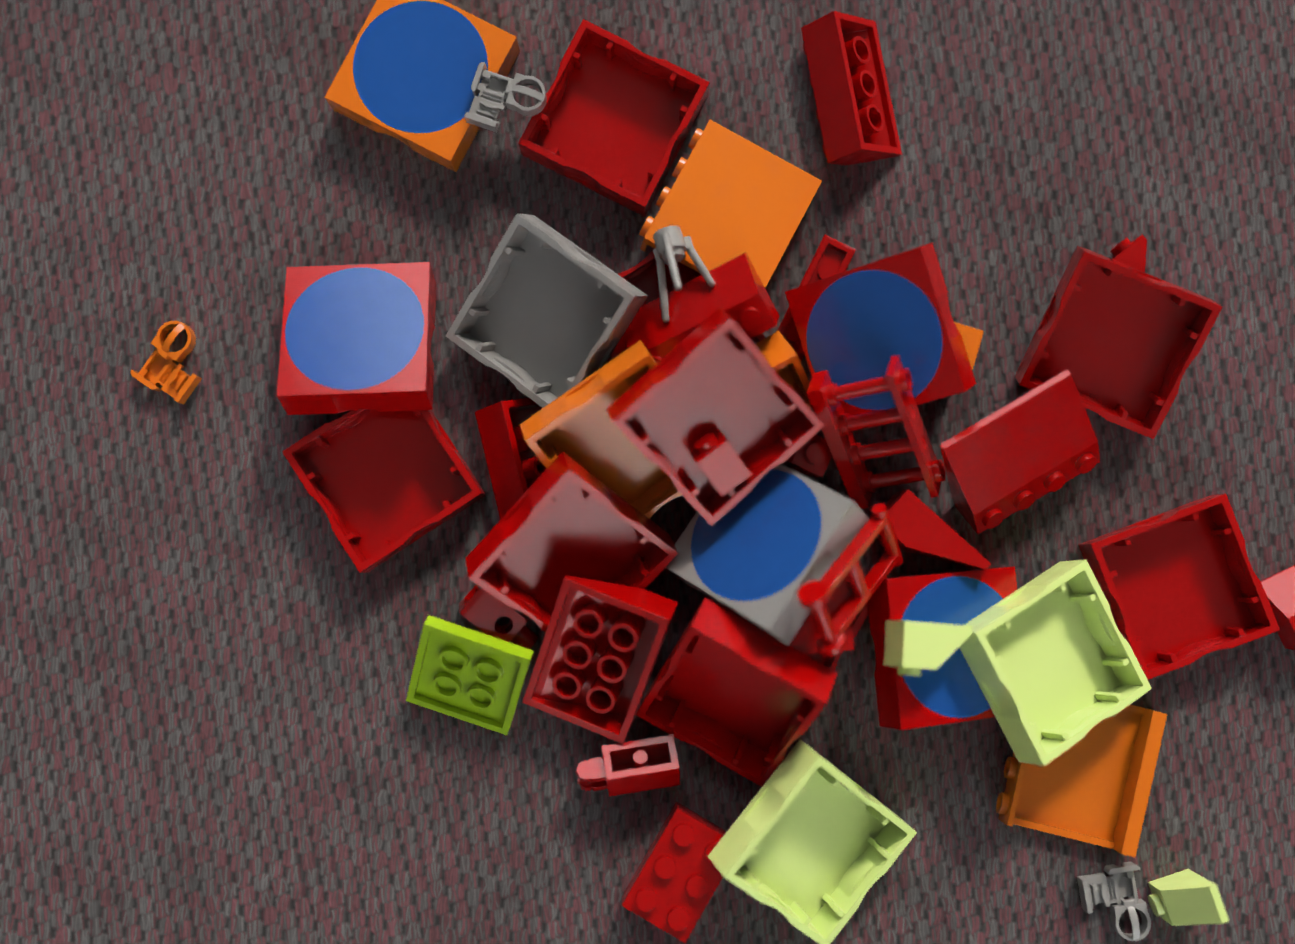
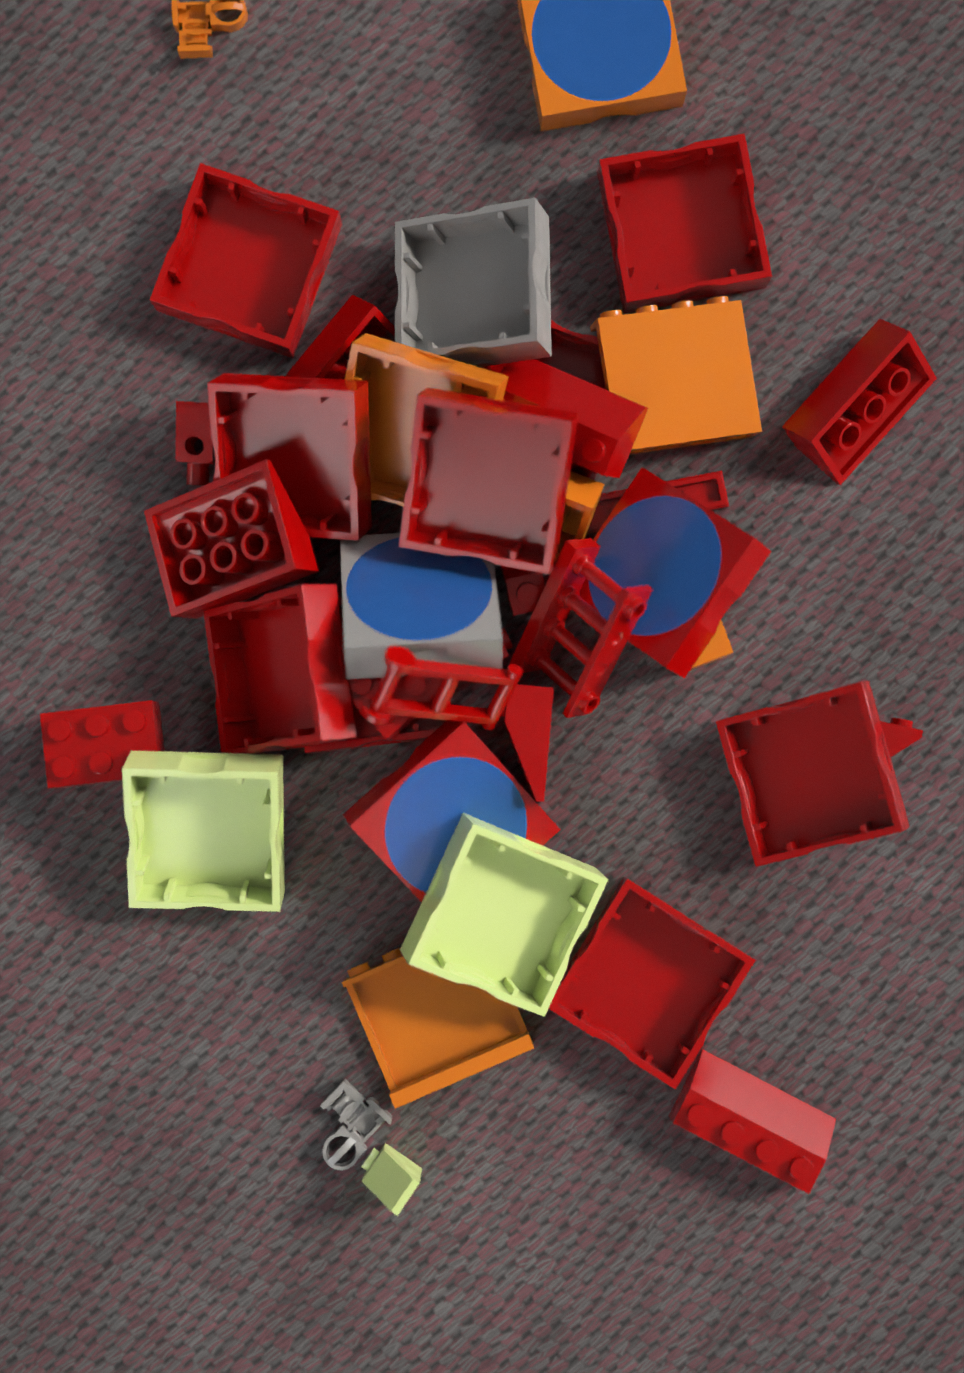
camera: 55 degrees right, 0 degrees up
(357, 338) = (338, 153): tile -> none
(468, 674) = (133, 450): lime plate -> none
(496, 90) = (625, 107): light grey piece -> none
(632, 767) = (159, 640): red hinge -> none
(670, 250) = (602, 345): light grey plant -> none
(719, 462) = (455, 513): brick -> none
(921, 644) = (430, 787): yellowish green slope -> none
(1020, 453) = (657, 761): red slope -> none

